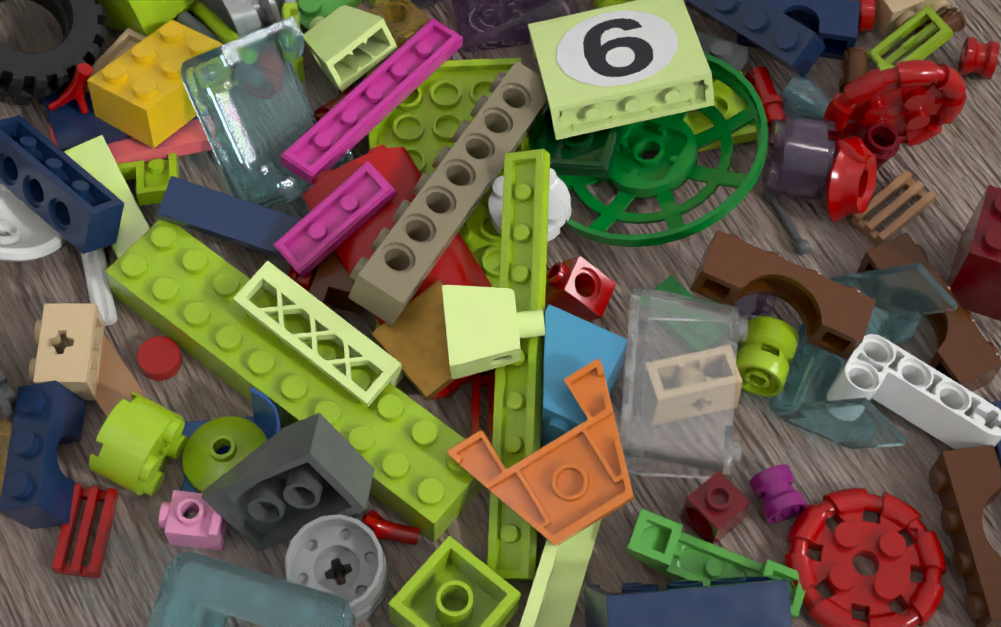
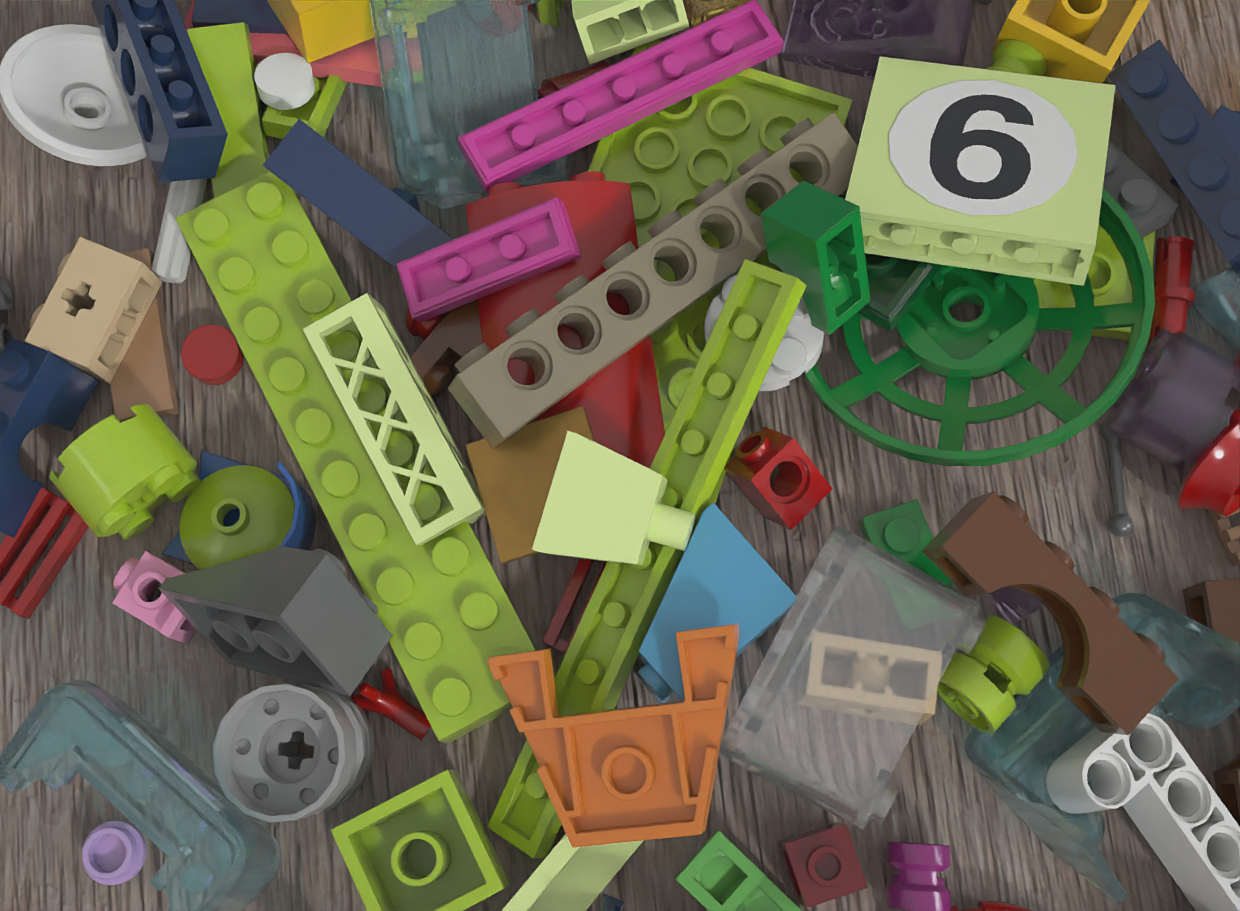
camera: 30 degrees right, 15 degrees up
(142, 164) = (284, 81): none -> white tile
(549, 126) = (822, 245): none -> green arch

